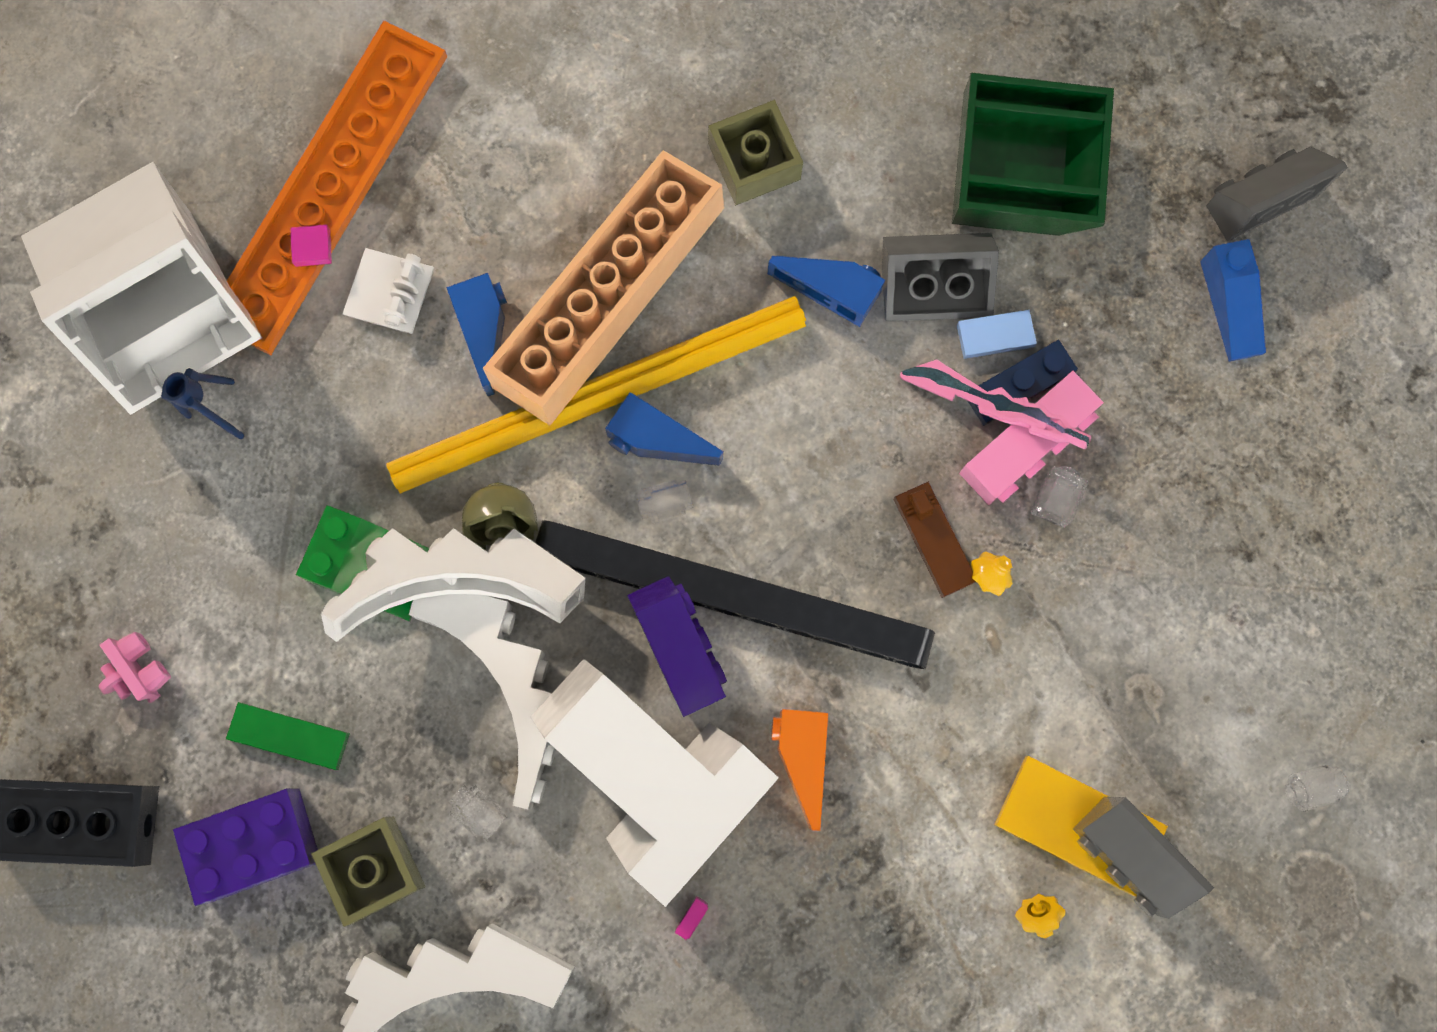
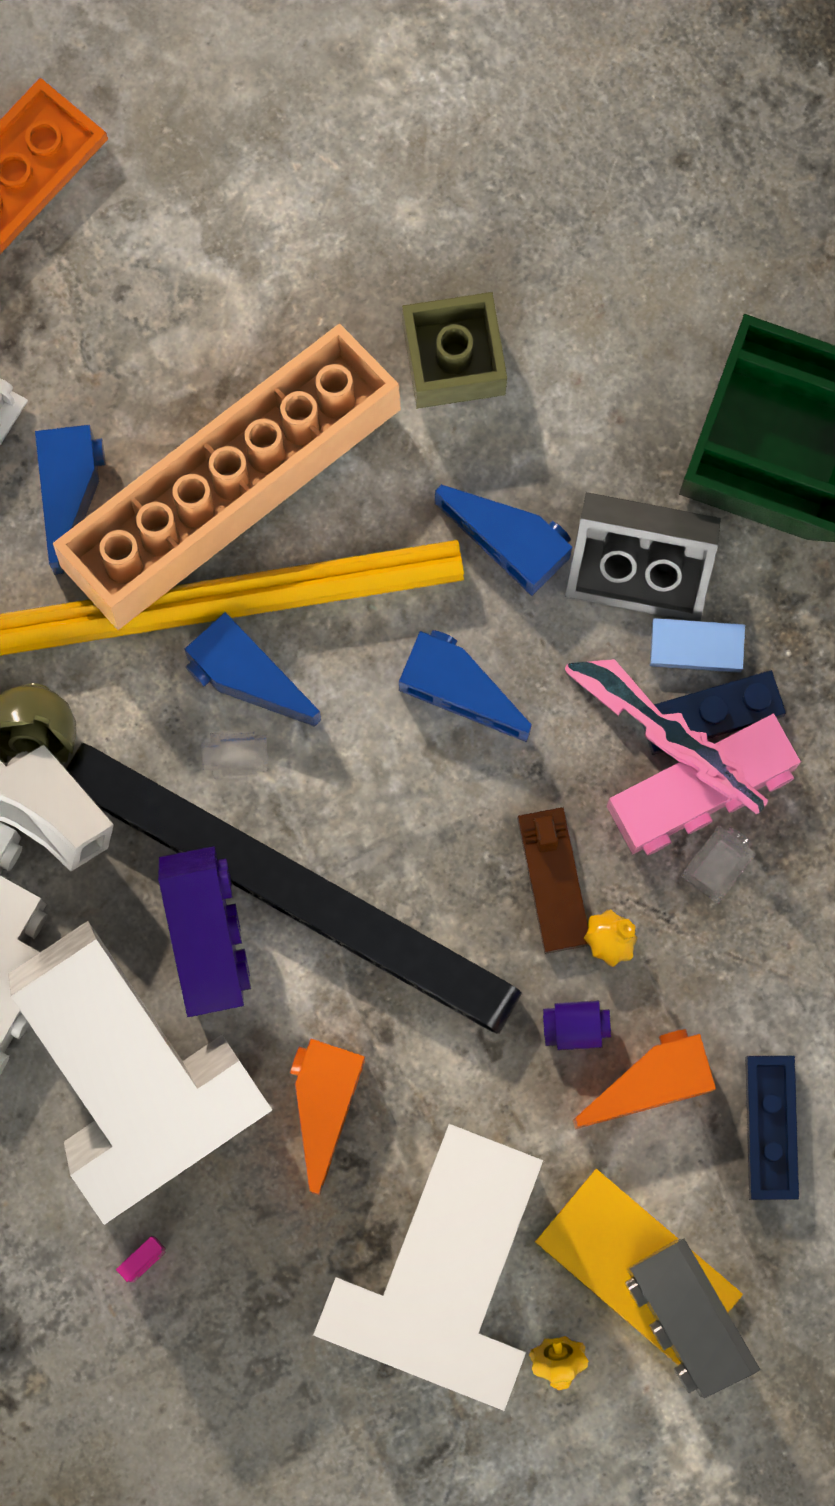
camera: 15 degrees right, 0 degrees up
(820, 405) = (453, 681): none -> blue slope
(945, 875) = (445, 1275): none -> white piece
(983, 647) = (576, 1025): none -> dark purple brick
(1056, 673) = (661, 1077): none -> orange slope
(1154, 690) = (772, 1128): none -> dark blue plate

